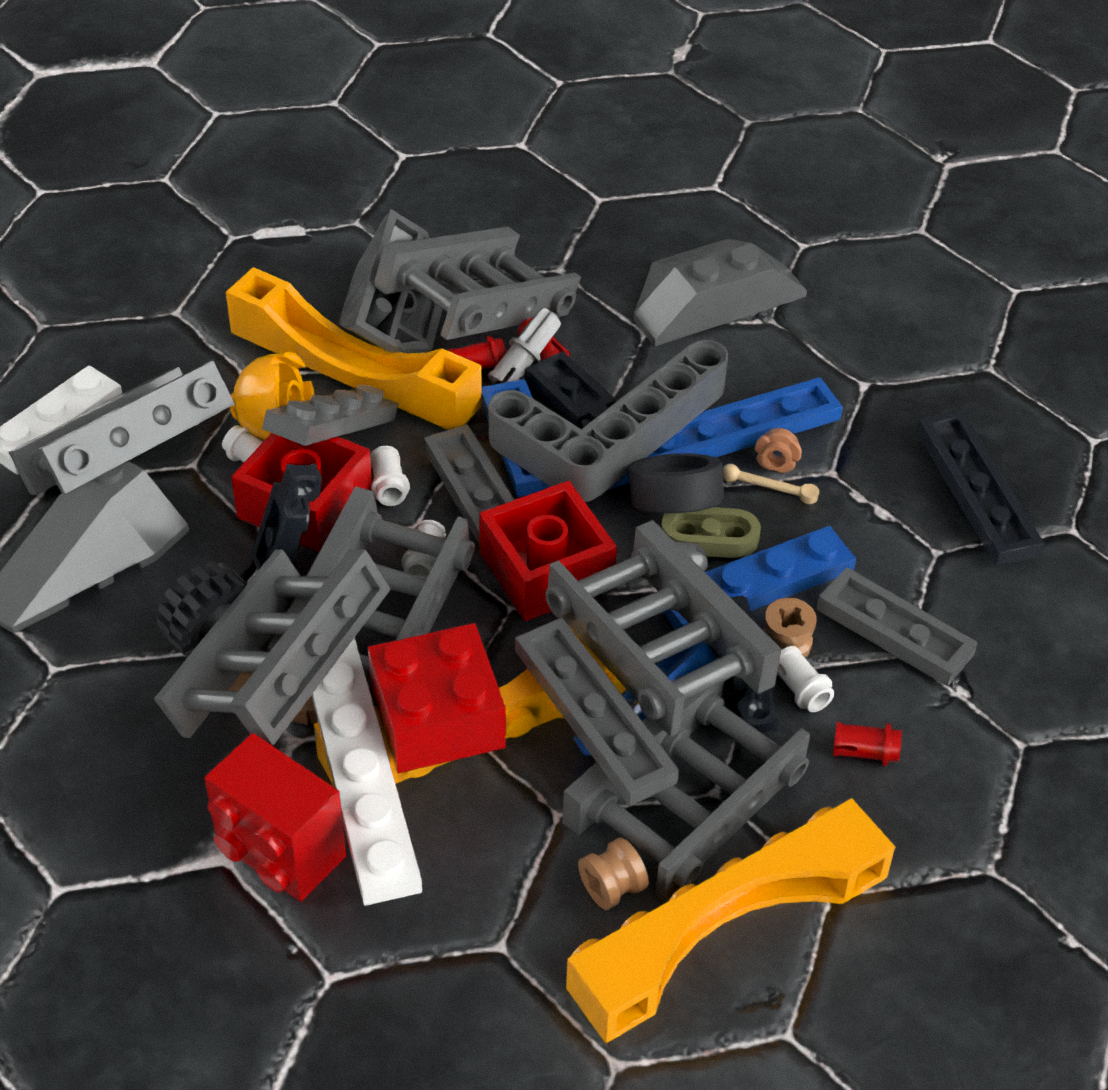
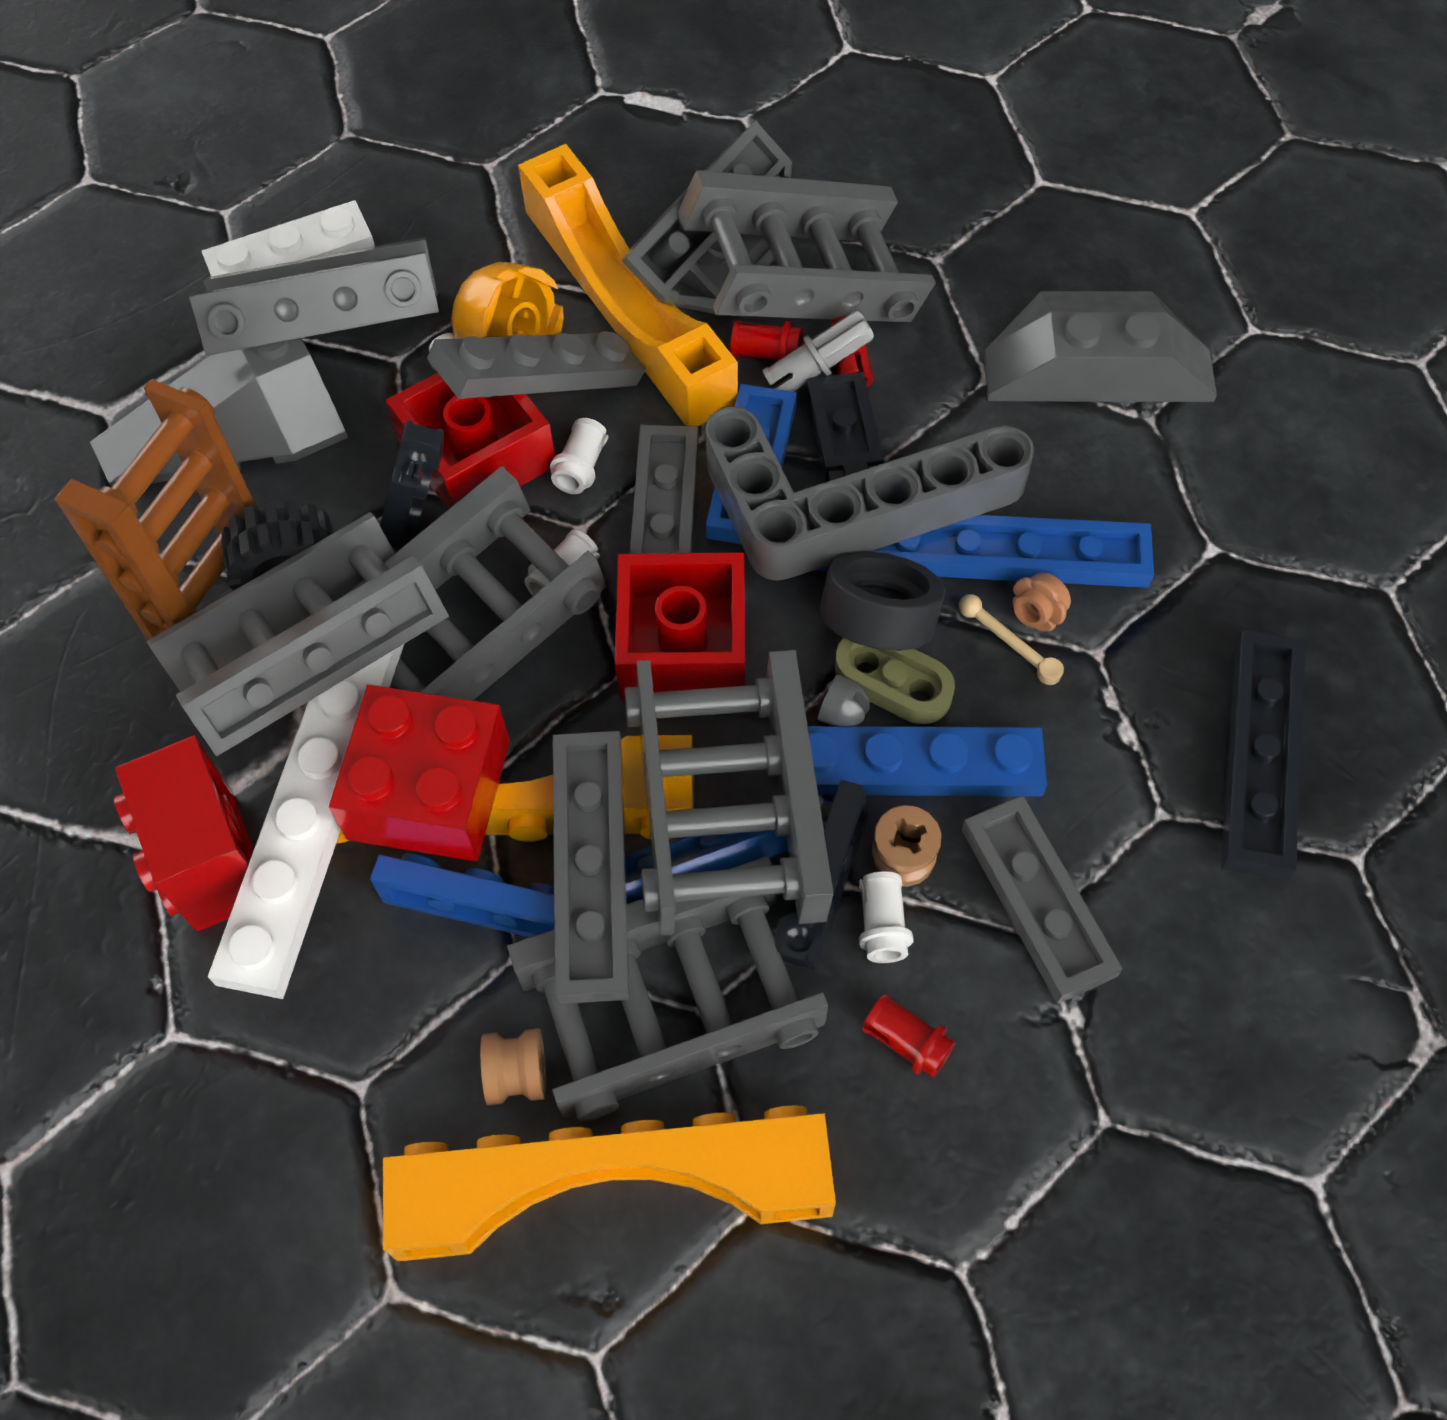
camera: 30 degrees right, 15 degrees up
(127, 598) = (128, 547): none -> dark orange fence
(506, 782) = (470, 897): none -> blue plate

